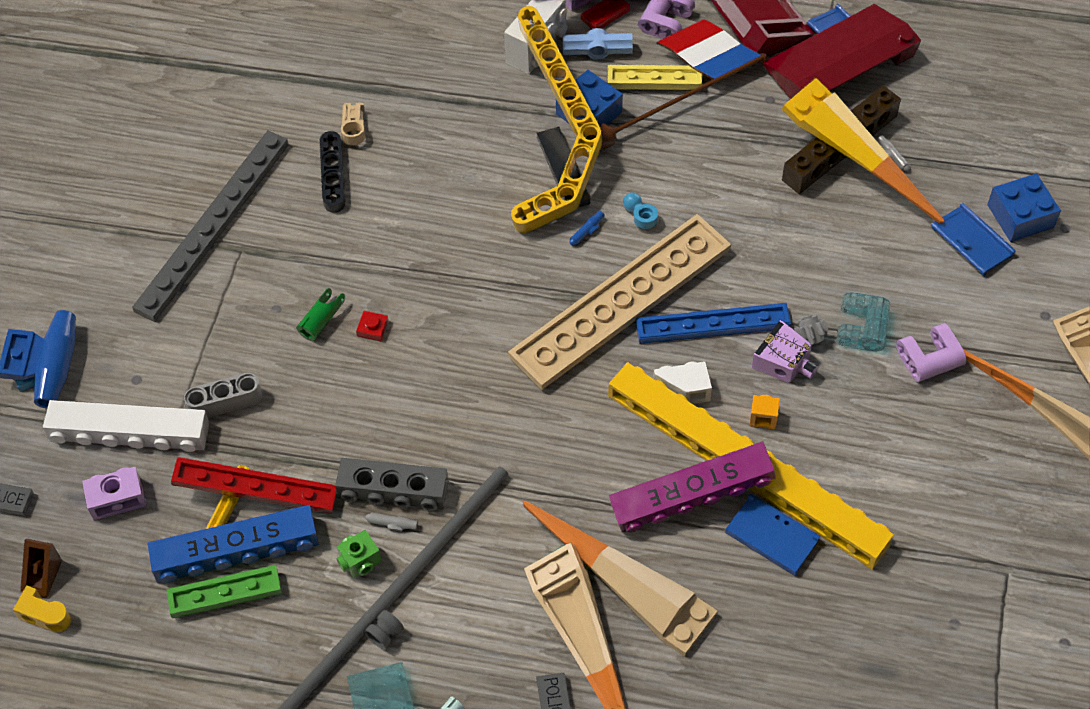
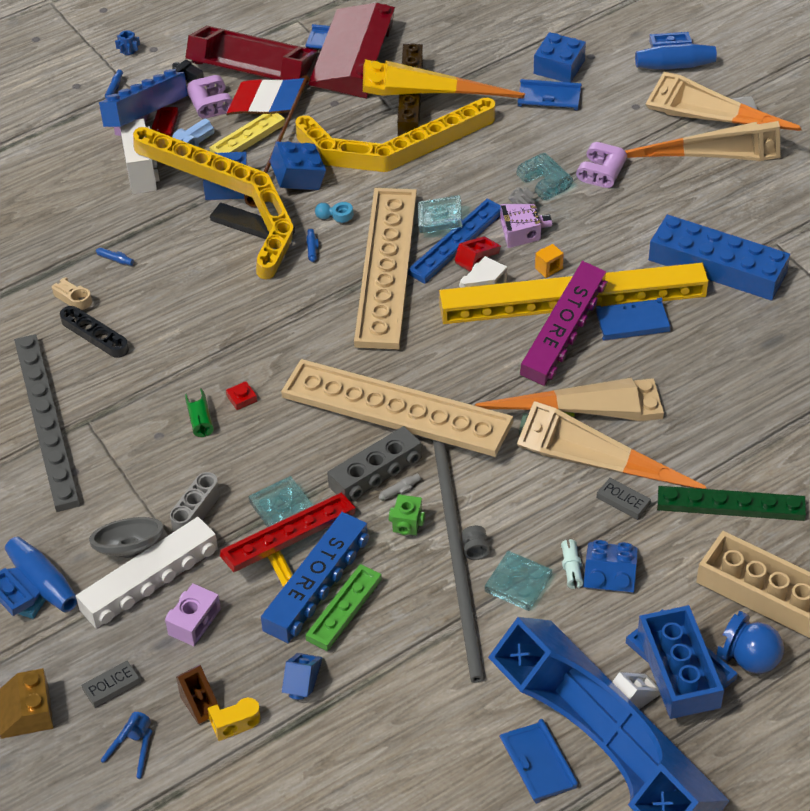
camera: 45 degrees left, 10 degrees down
(126, 620) = (301, 675): none -> slope
(141, 380) = (126, 536): none -> dark grey dish
(285, 452) = (279, 501): none -> clear light blue plate
(426, 115) = (117, 256): none -> blue piece
(468, 449) = (398, 407): none -> tan plate
(653, 140) = (297, 165): none -> blue brick
(711, 348) = (474, 251): none -> red plate
(722, 286) = (440, 214): none -> clear light blue plate
(780, 194) = (400, 149): none -> yellow beam
(925, 542) = (724, 256): none -> blue brick

